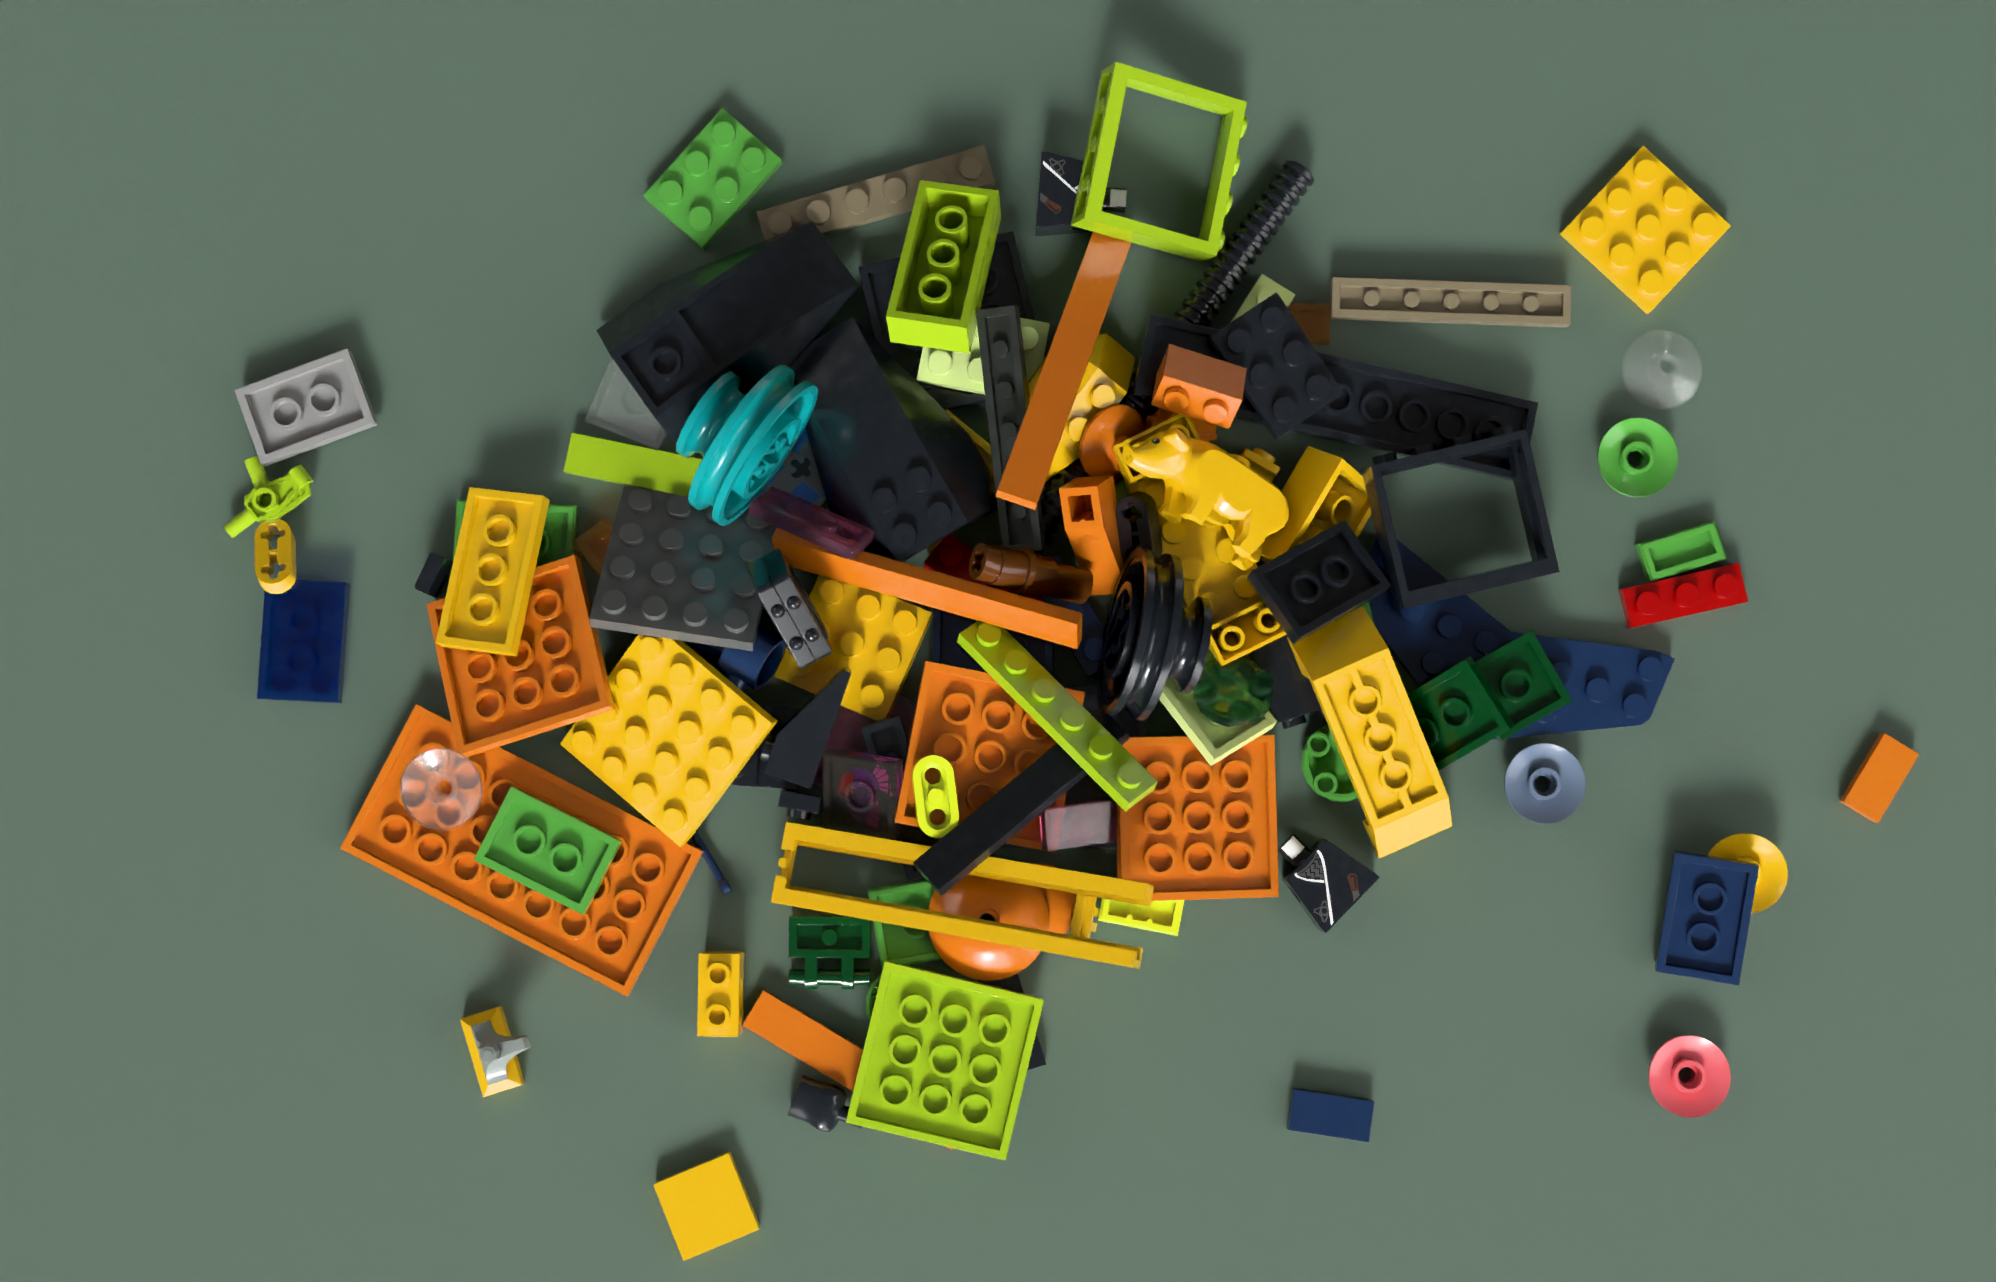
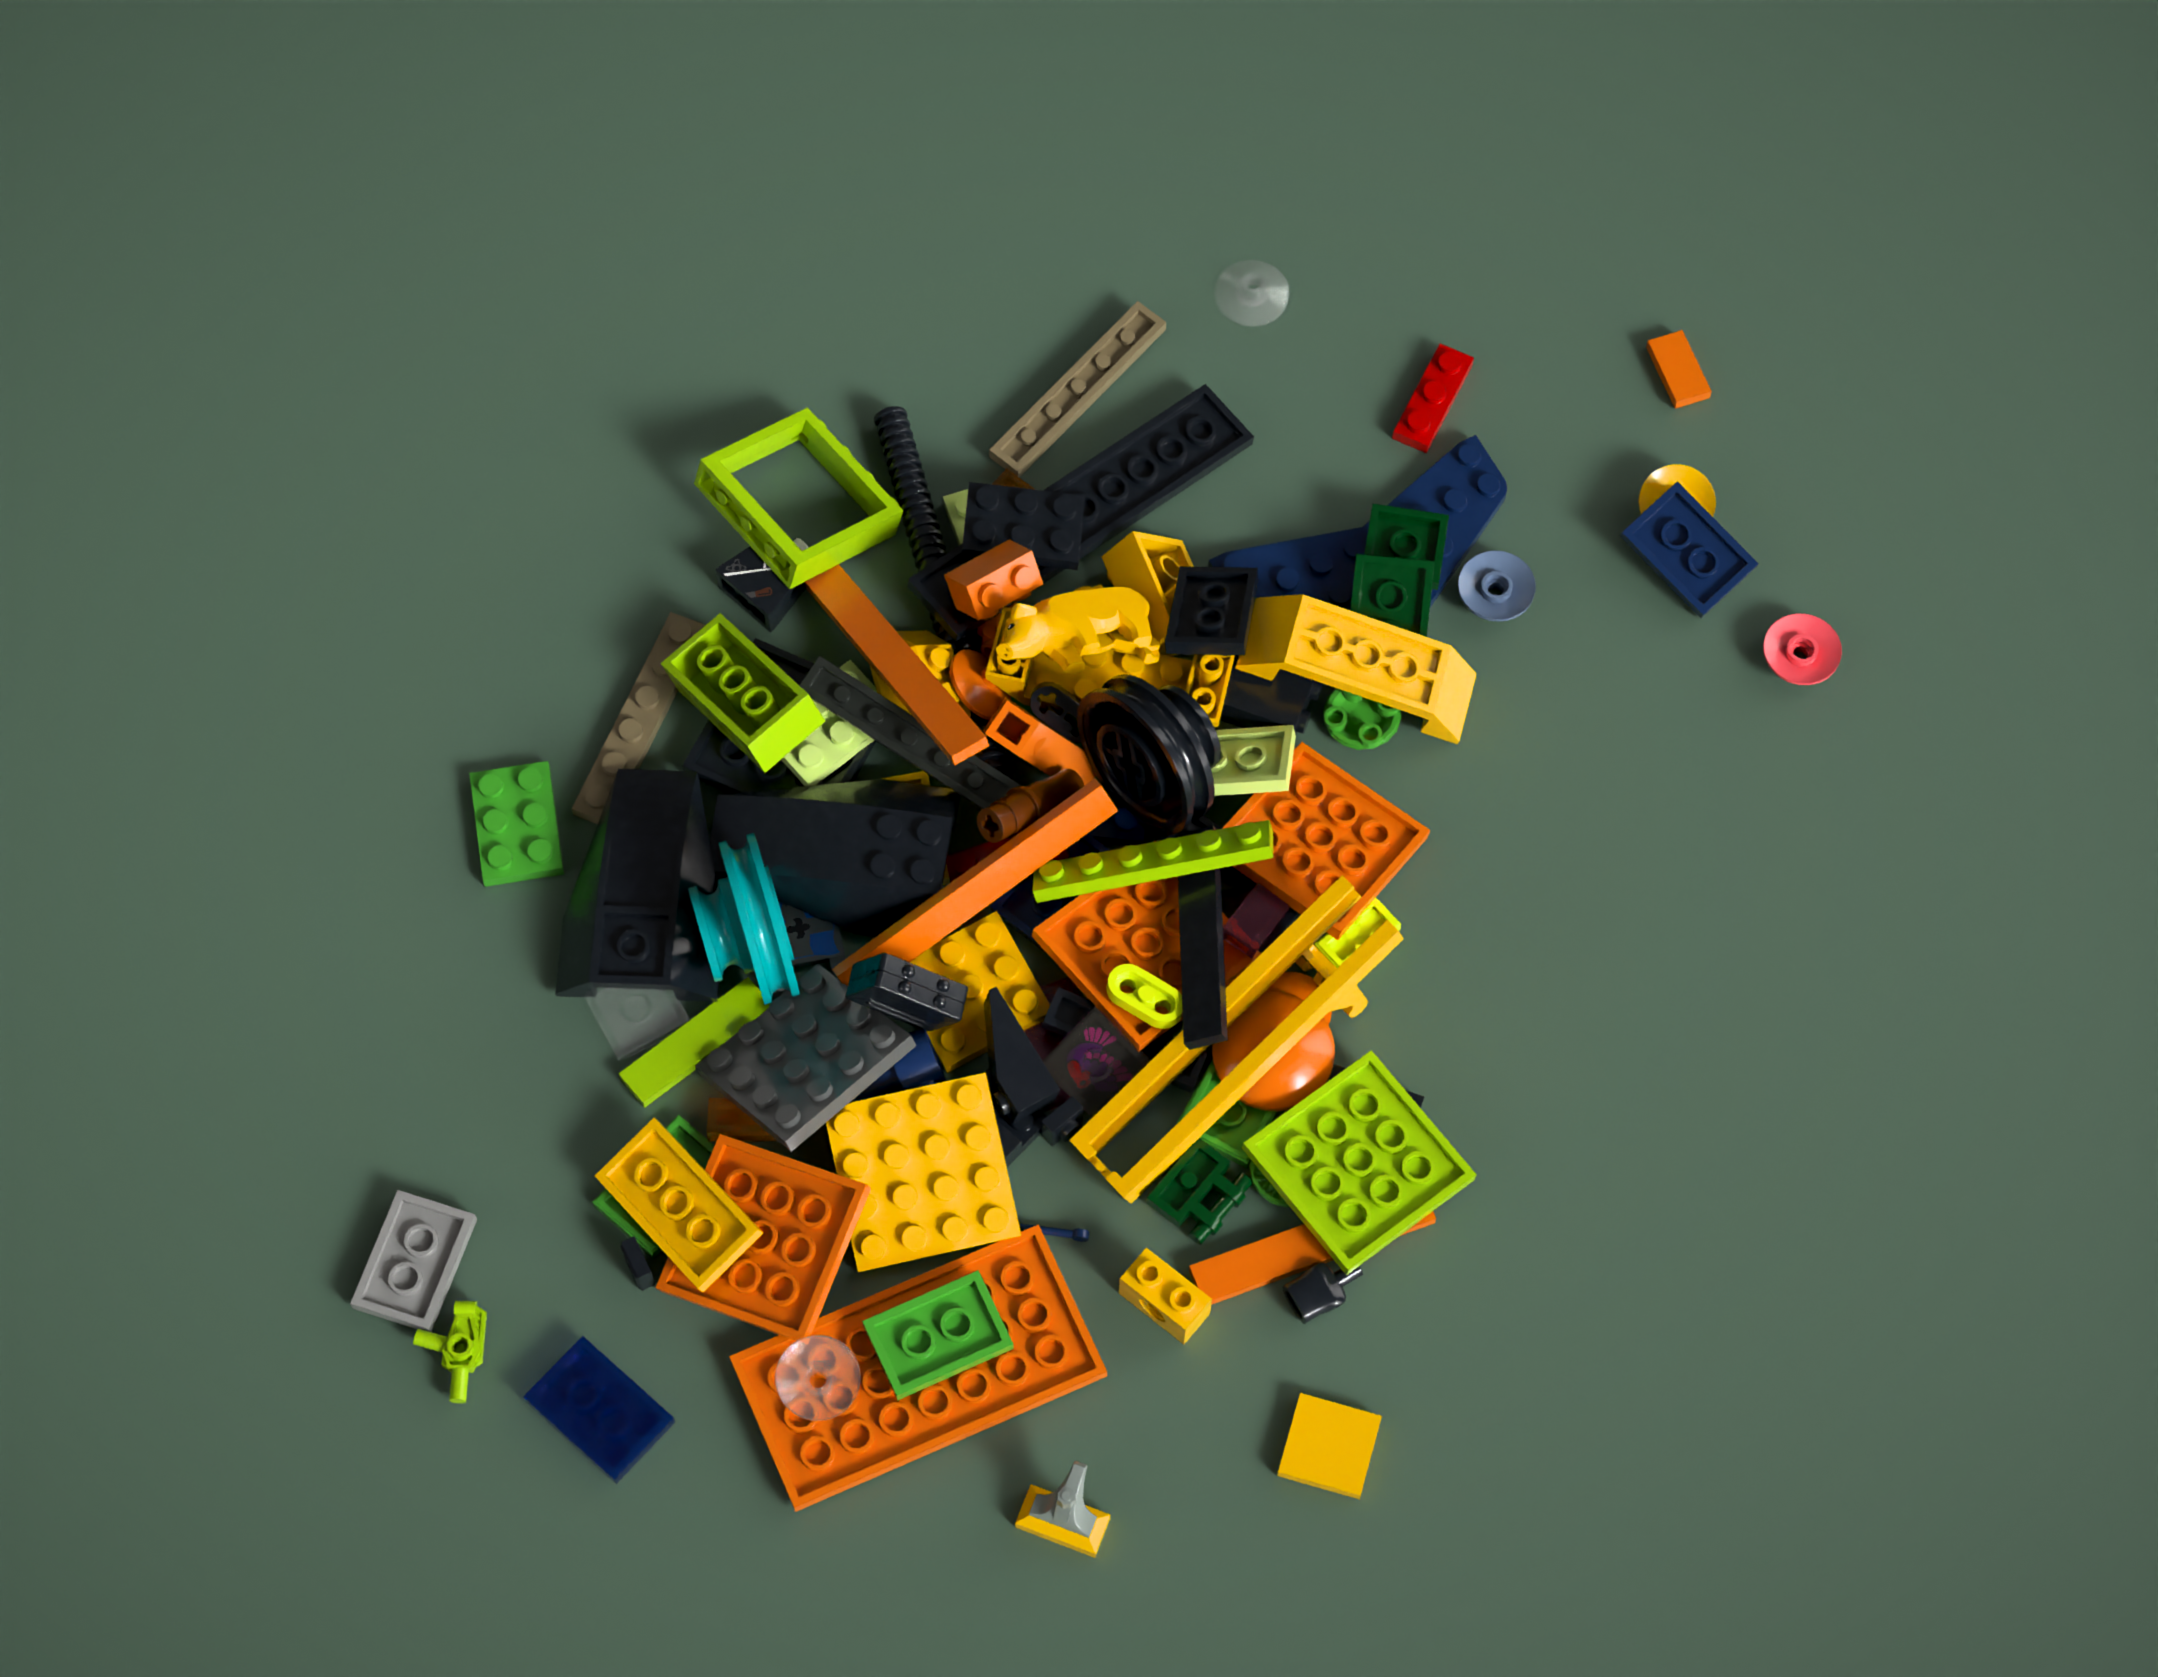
camera: 50 degrees left, 20 degrees down
(266, 556) = (517, 1367): yellow beam -> none
(811, 522) = (850, 938): clear pink tile -> none
(1234, 692) = (1247, 733): clear green dish -> none
(1324, 879) = (1444, 789): black torso -> none
(1330, 1114) = (1632, 922): dark blue tile -> none
(1529, 499) = (1272, 437): black window -> none
(1645, 230) = (1139, 229): yellow plate -> none
(1656, 454) = (1308, 338): bright green dish -> none
(1680, 551) = (1398, 376): bright green tile -> none

